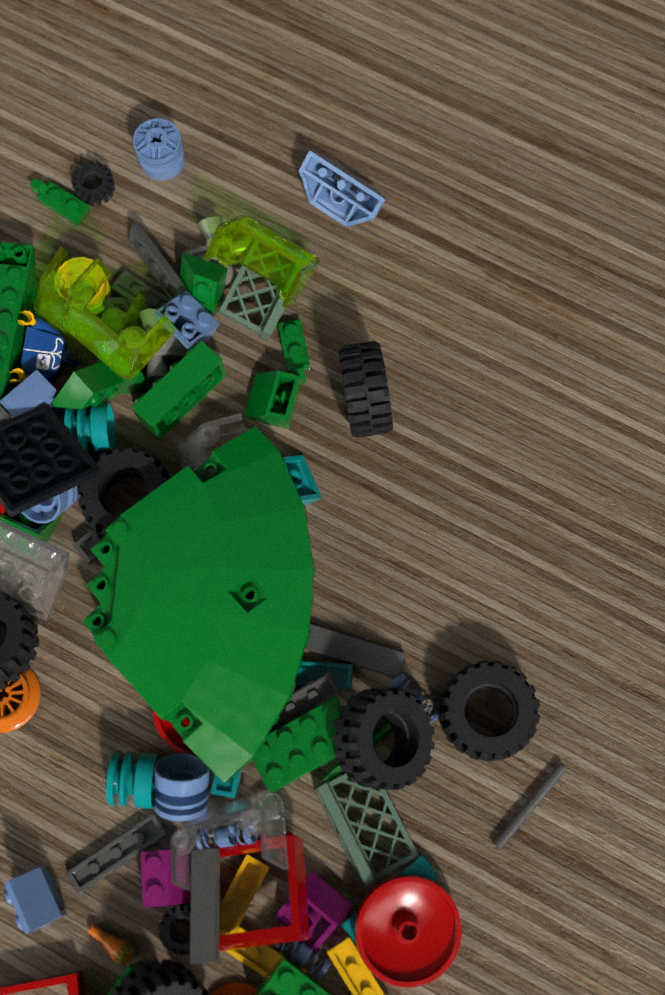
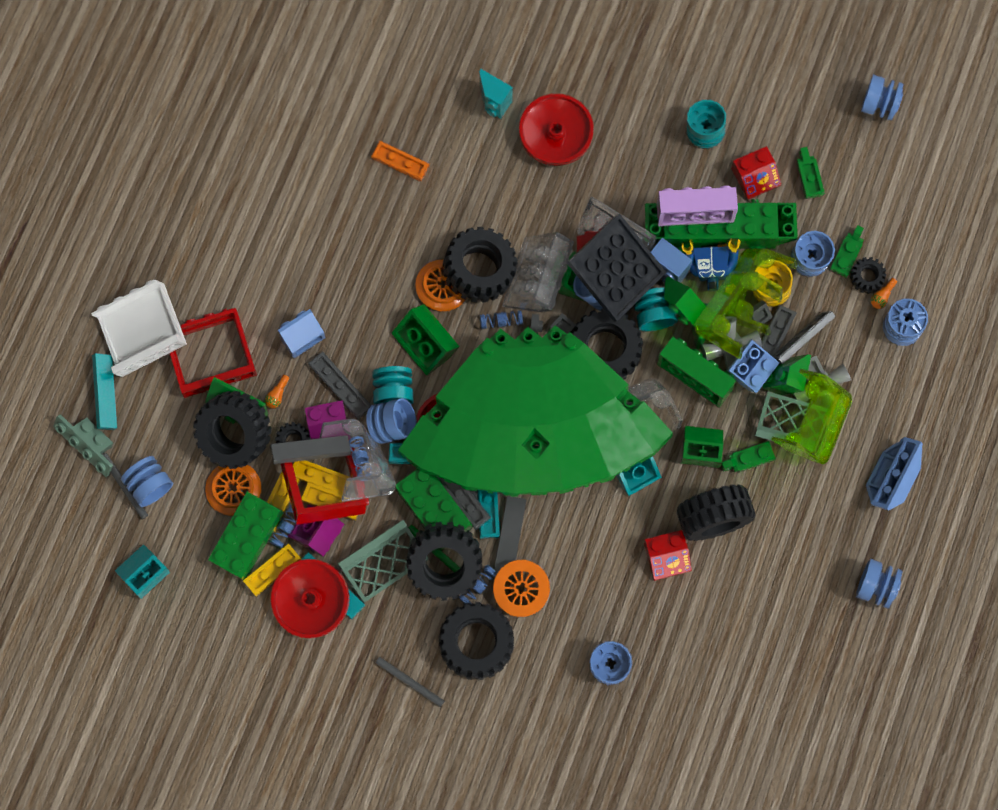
camera: 80 degrees right, 0 degrees up
(52, 225) = (813, 243): none -> medium blue wheel
(65, 623) = (501, 317): none -> medium blue piece
(73, 728) = (425, 339): none -> green slope
(80, 579) = (536, 325): none -> dark grey plate
(124, 174) = (880, 298): none -> orange piece
(269, 895) = (321, 496): none -> yellow plate
(403, 460) = (668, 555): none -> red slope
(448, 634) = (538, 601): none -> orange piece
(469, 225) = (879, 583): none -> medium blue wheel
(543, 535) = (615, 652): none -> medium blue wheel

